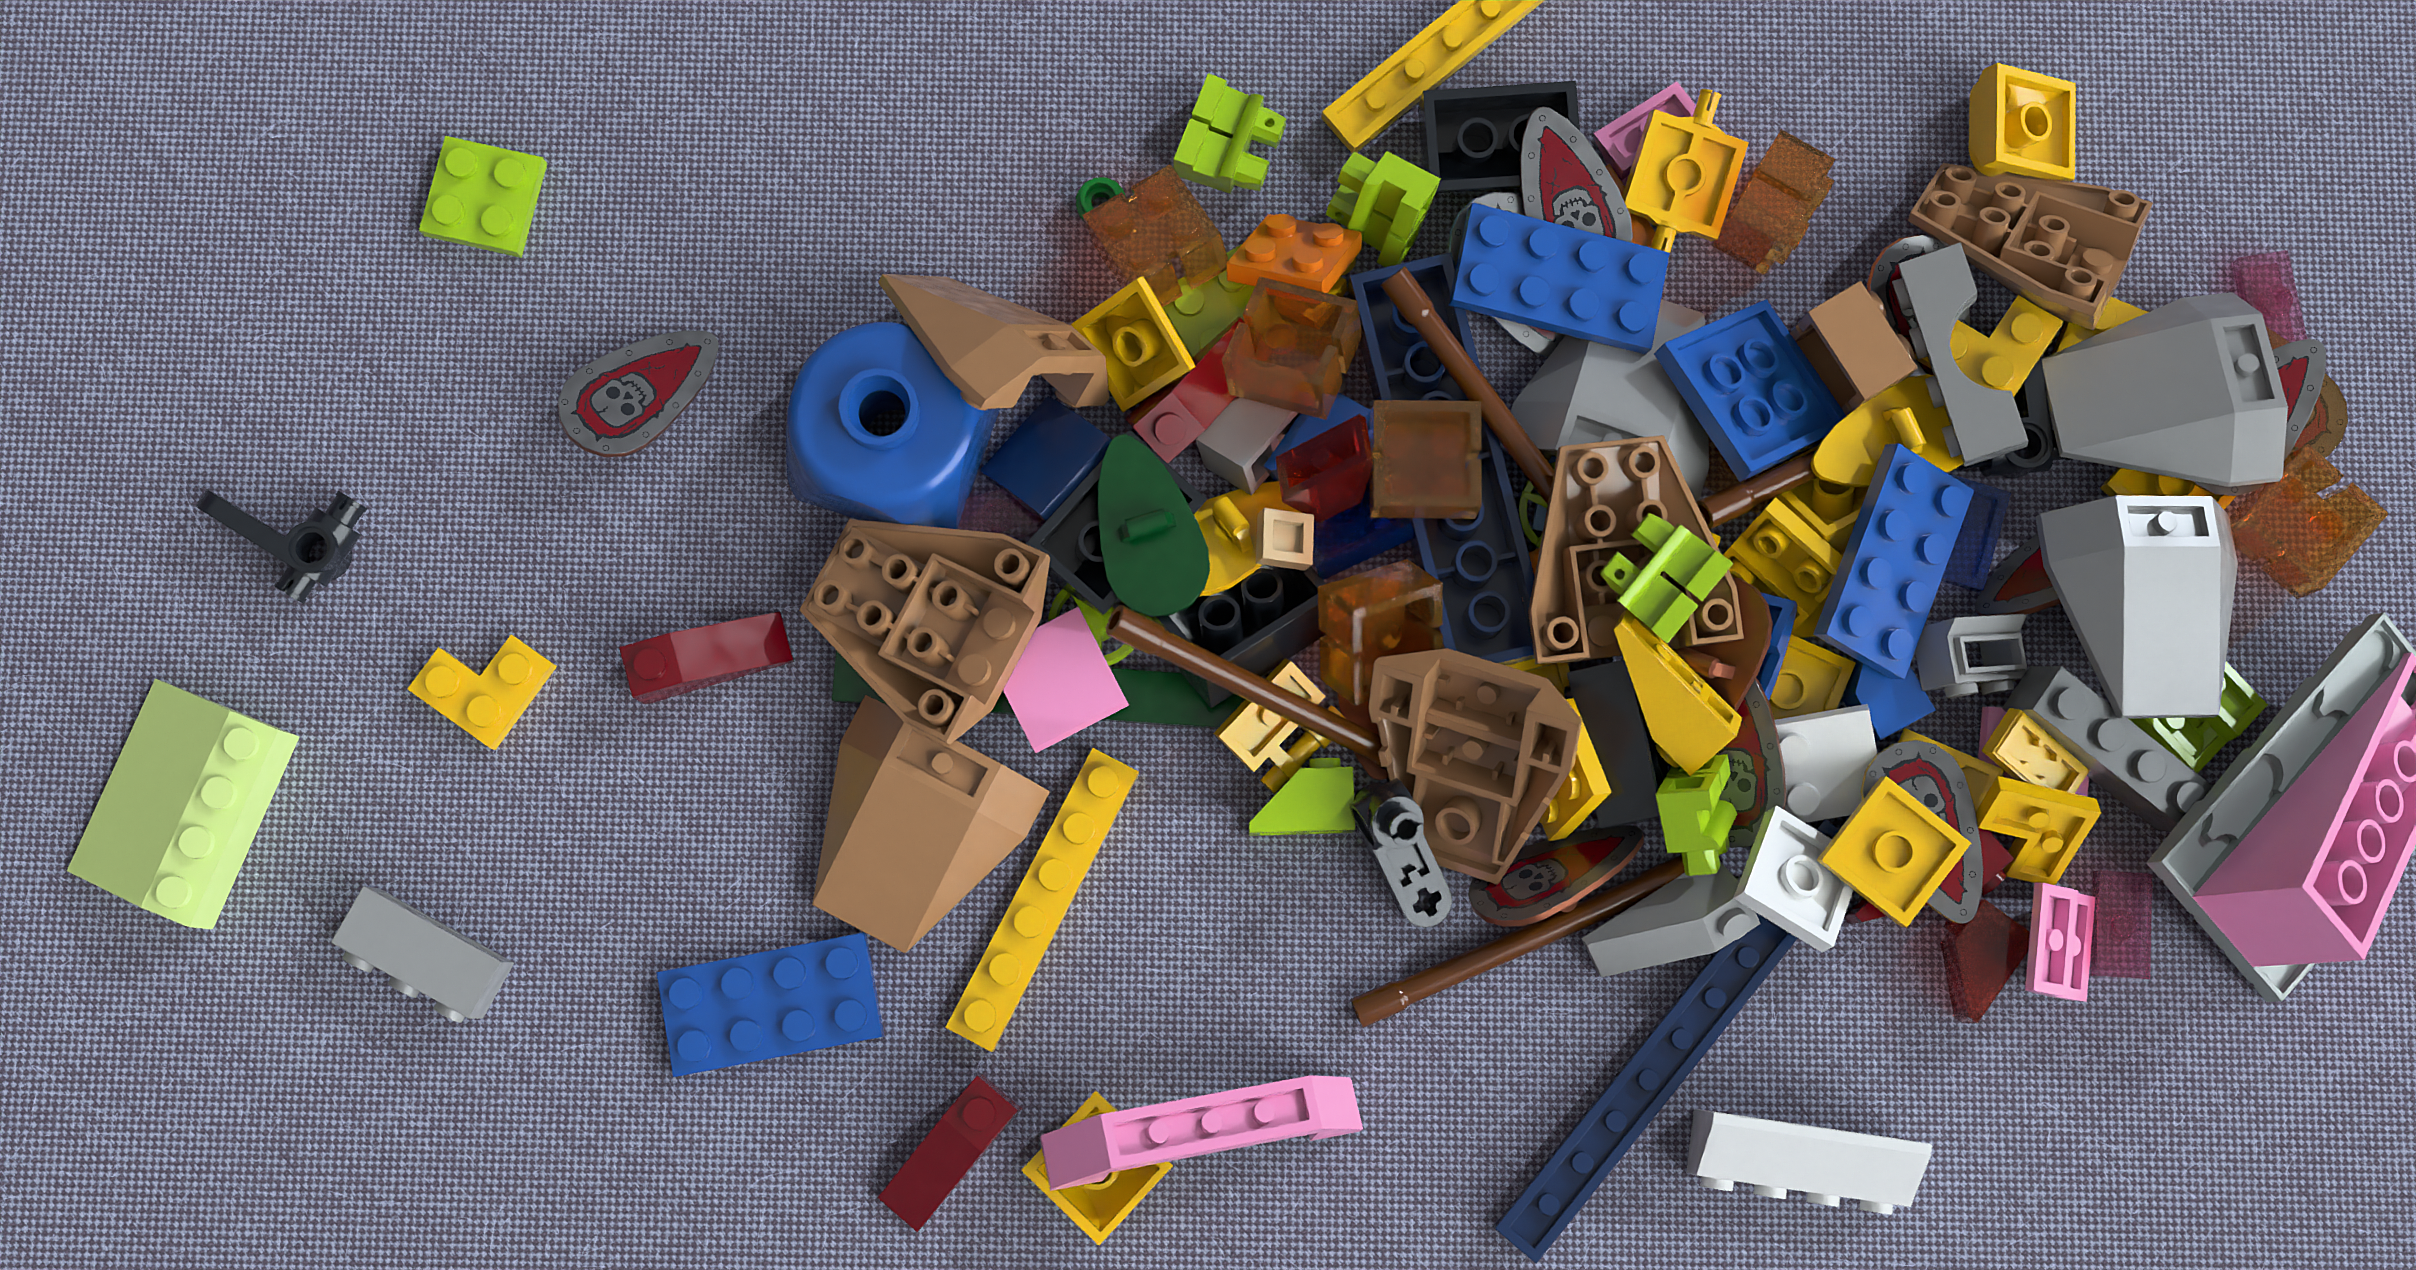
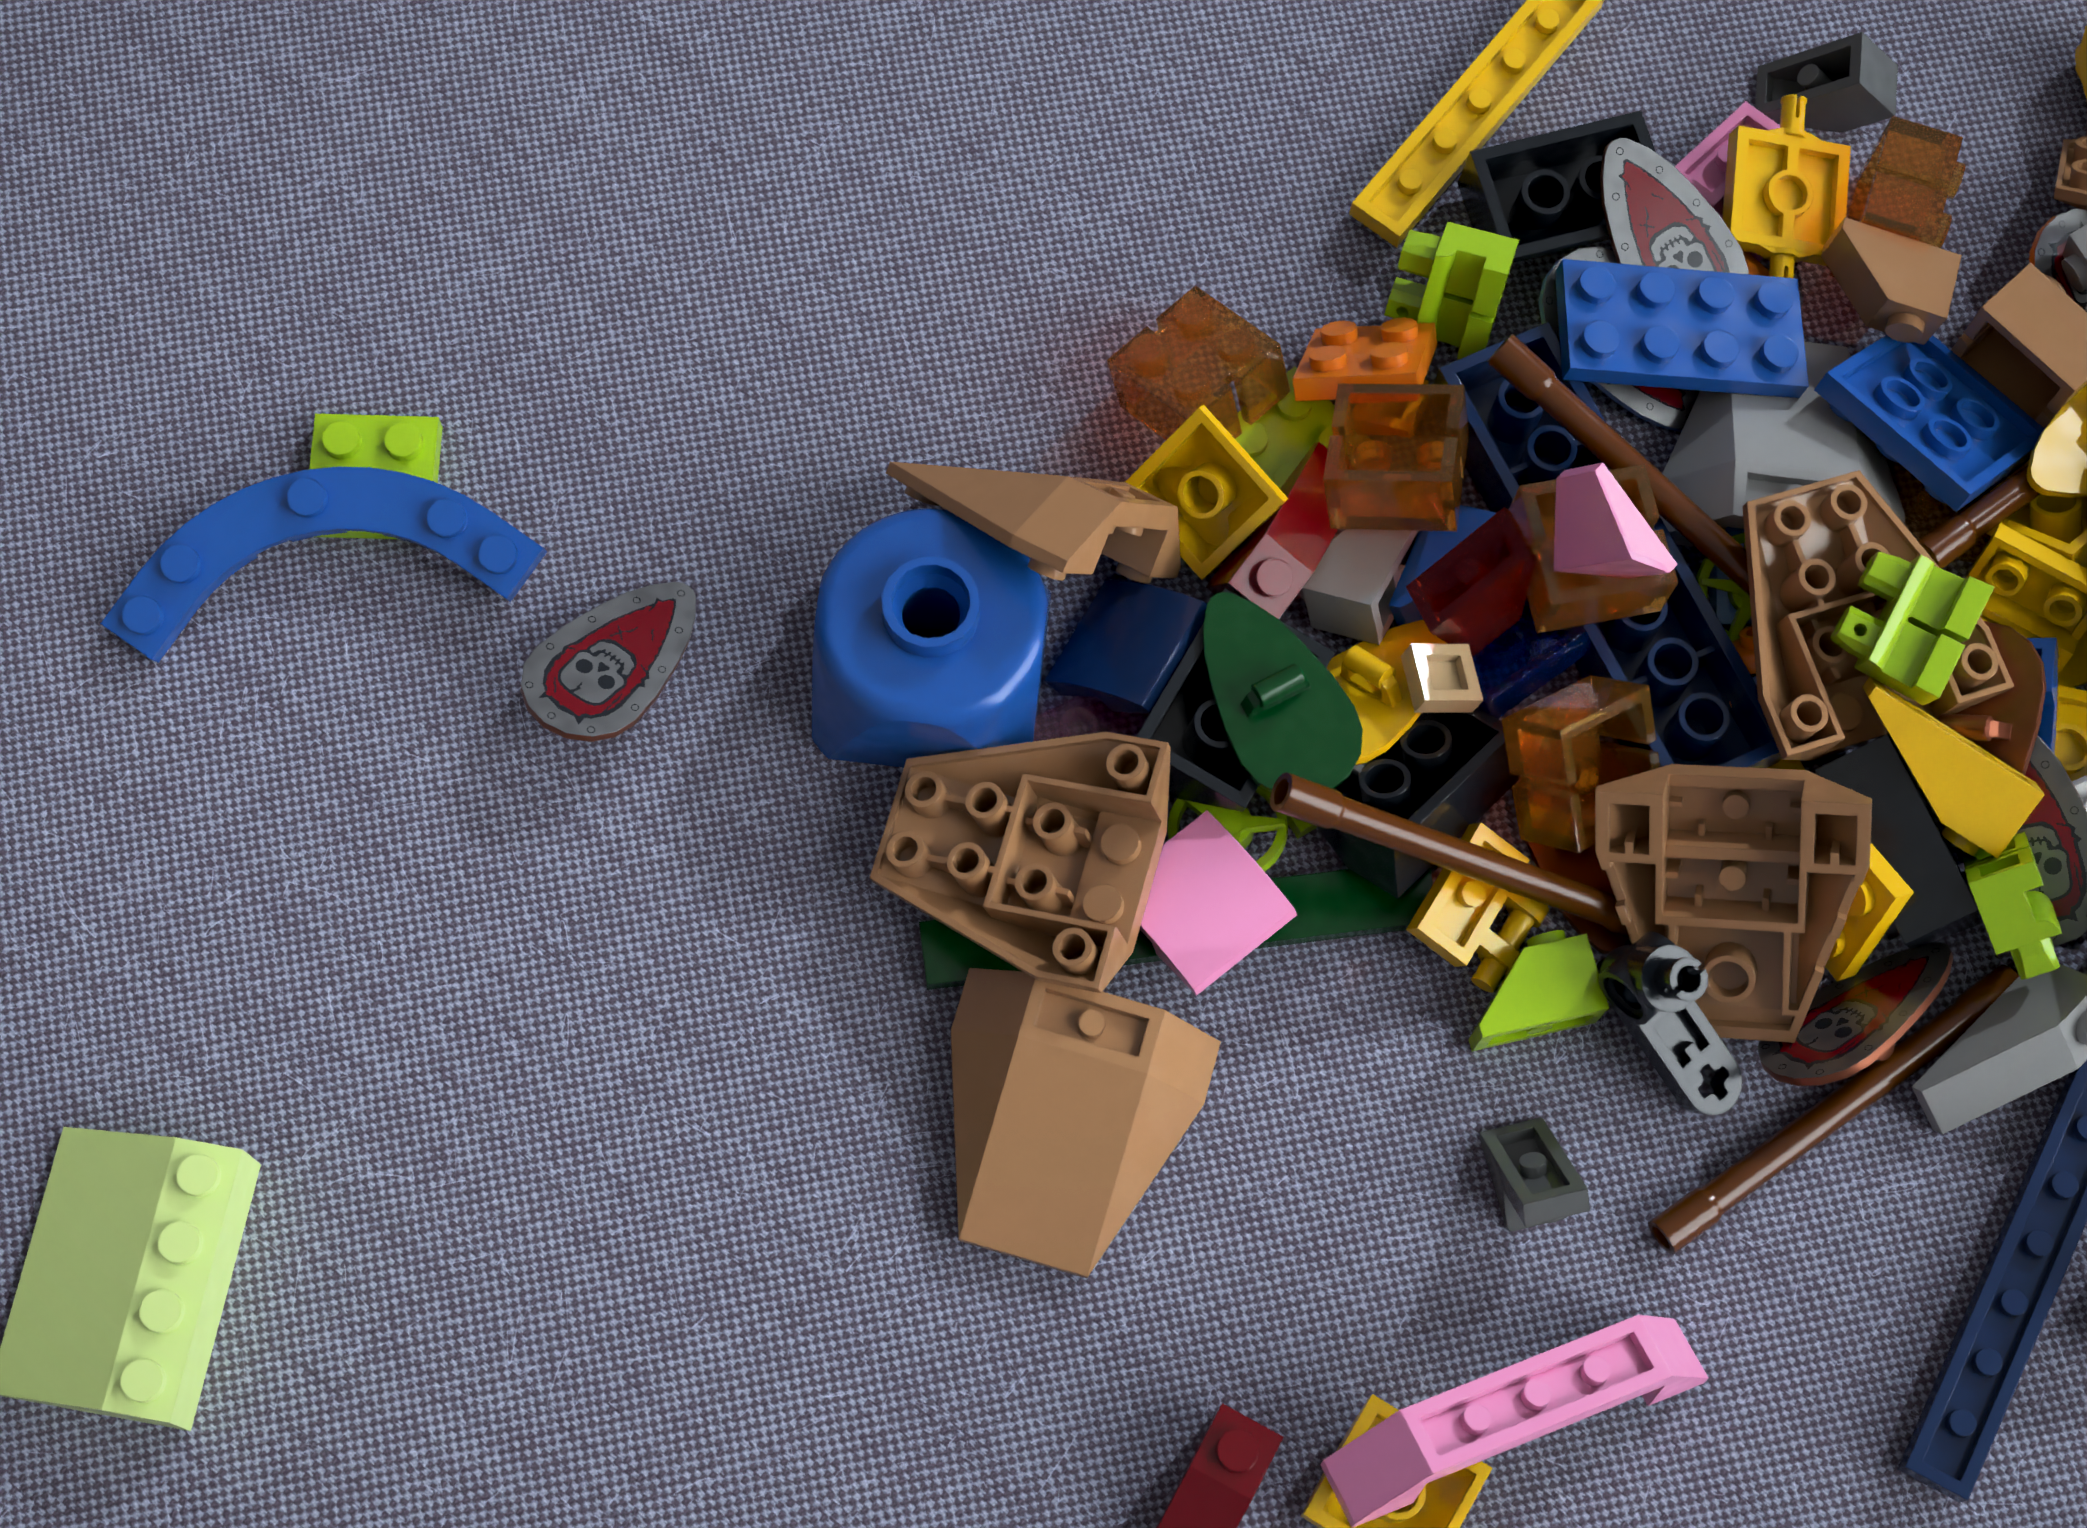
camera: 15 degrees left, 10 degrees down
(300, 577) = (253, 894): black piece -> none
(421, 955) = (473, 1403): light grey brick -> none
(424, 215) = (306, 506): none -> blue plate
(486, 702) = (489, 1075): yellow plate -> none
(704, 656) = (758, 962): dark red slope -> none
(770, 1004) = (930, 1378): blue plate -> none
(1042, 900) = (1240, 1181): yellow plate -> none
(1094, 189) = (1107, 336): green plate -> none
(1219, 137) = (1241, 249): lime hips -> none
(1265, 944) = (1532, 1175): none -> dark grey slope
(1424, 455) = (1602, 529): none -> bright pink slope
(1748, 270) = (1892, 279): none -> medium nougat slope
(1753, 81) = (1844, 84): none -> dark grey slope

